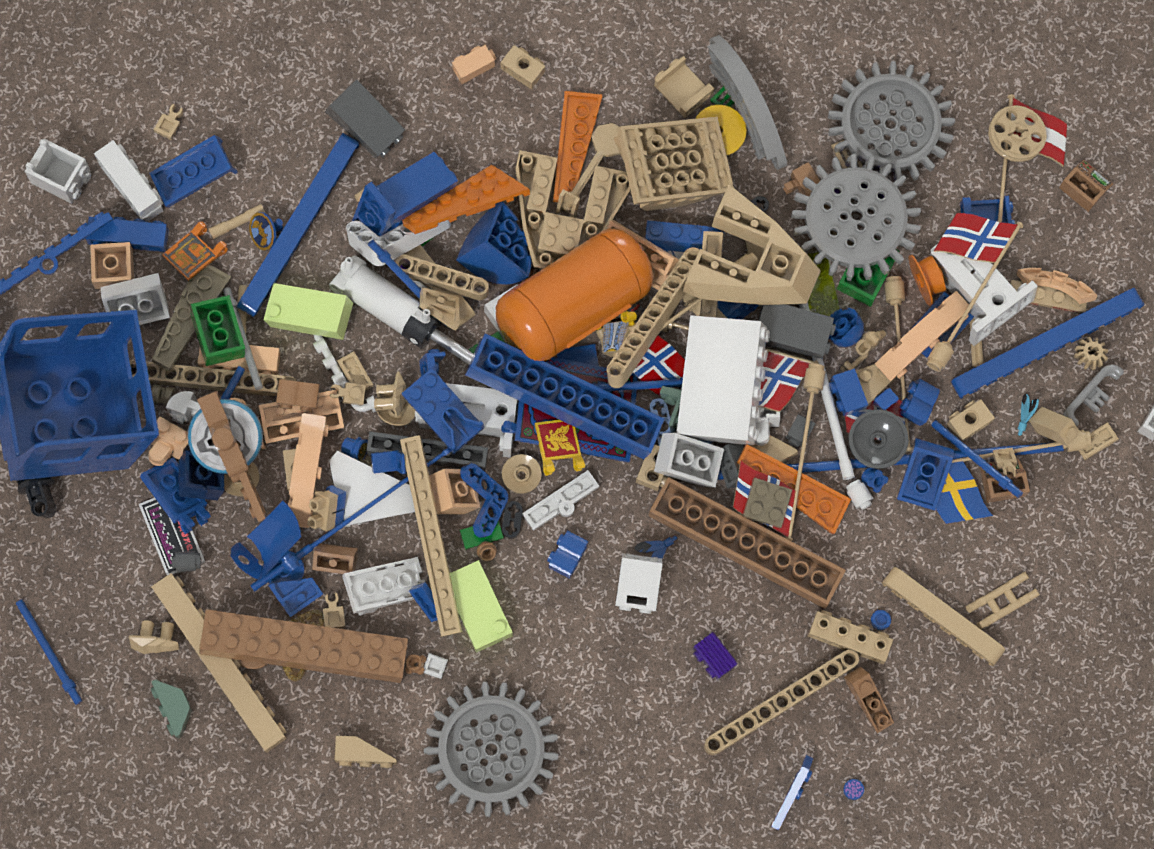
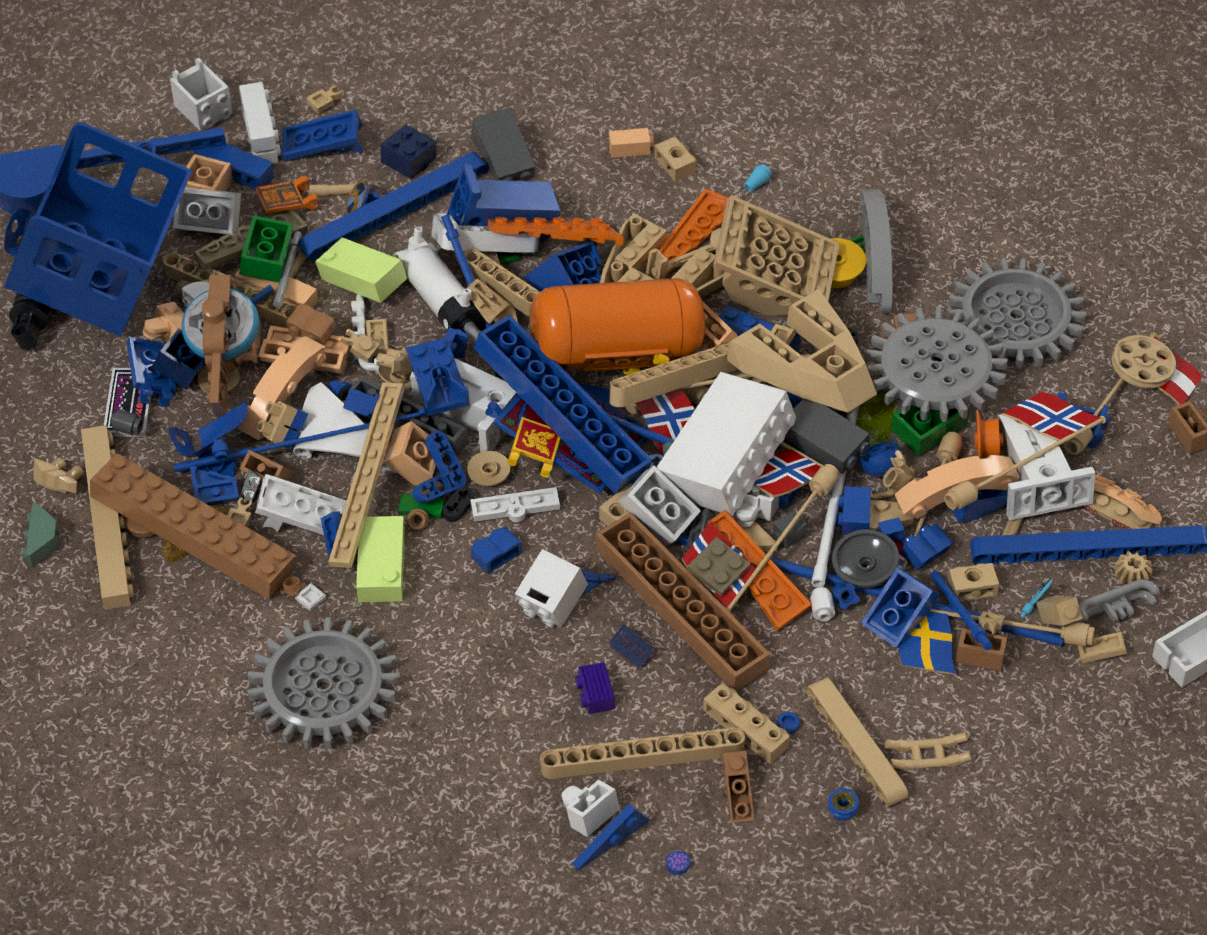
camera: 30 degrees right, 25 degrees down
(280, 156) = (408, 151): none -> dark blue brick
(328, 581) = (250, 486): none -> light grey sticker
(355, 750) = (189, 635): tan slope -> none
(604, 58) = (759, 176): none -> medium azure cone
(682, 87) = (822, 217): tan panel -> none
(724, 602) = (632, 647): none -> slope
(764, 773) = (590, 806): none -> white brick
(968, 682) = (843, 804): none -> blue piece

